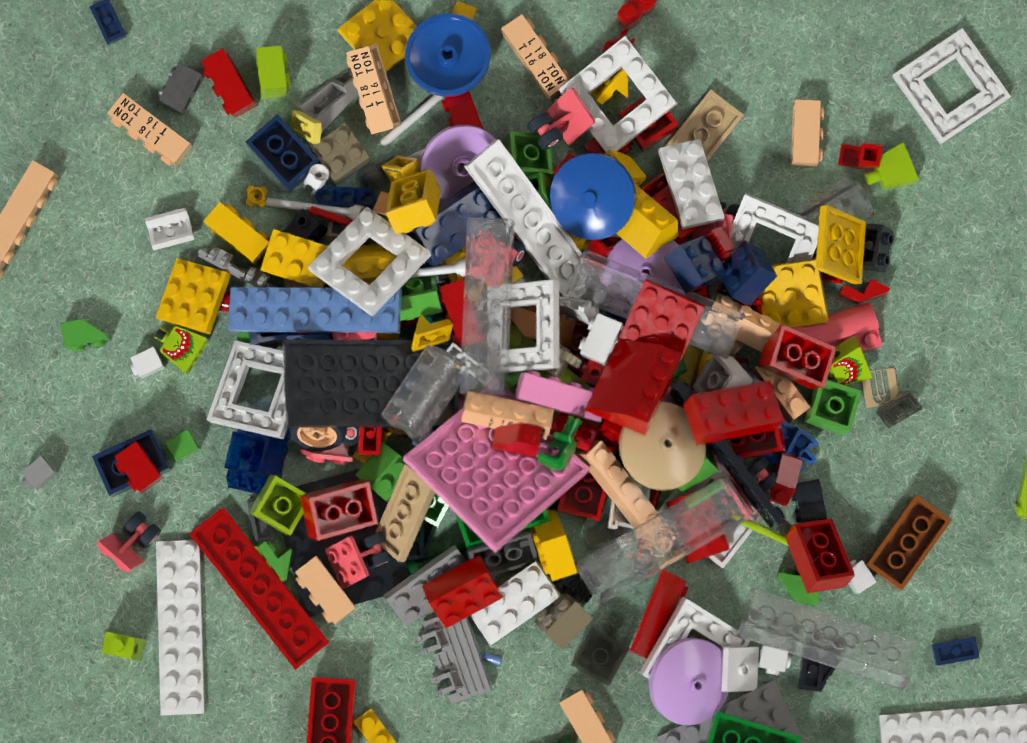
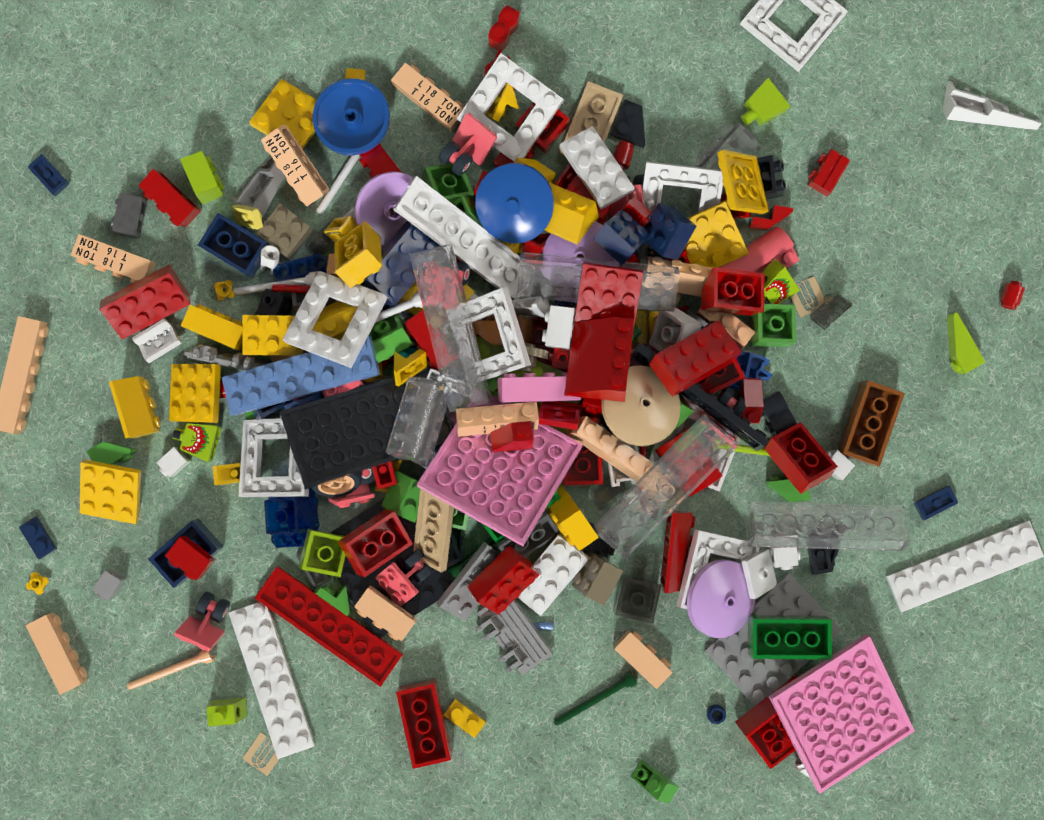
camera: 20 degrees left, 5 degrees up
(71, 374) = (110, 491): none -> yellow plate
(115, 581) = (203, 657): none -> light nougat piece
(127, 292) = (135, 407): none -> yellow slope
(144, 706) = (261, 754): none -> piece
(171, 185) = (145, 302): none -> red brick
(181, 446) = (225, 525): bright green brick -> none
(201, 392) = (226, 474): none -> yellow slope
(563, 443) = (554, 429): green piece -> none
(725, 178) = (623, 154): none -> red brick
(742, 148) = (630, 124): none -> black wing
(806, 133) = (681, 94): light nougat brick -> none
(860, 157) = (734, 102): red slope -> none
(940, 261) = (828, 172): none -> red brick

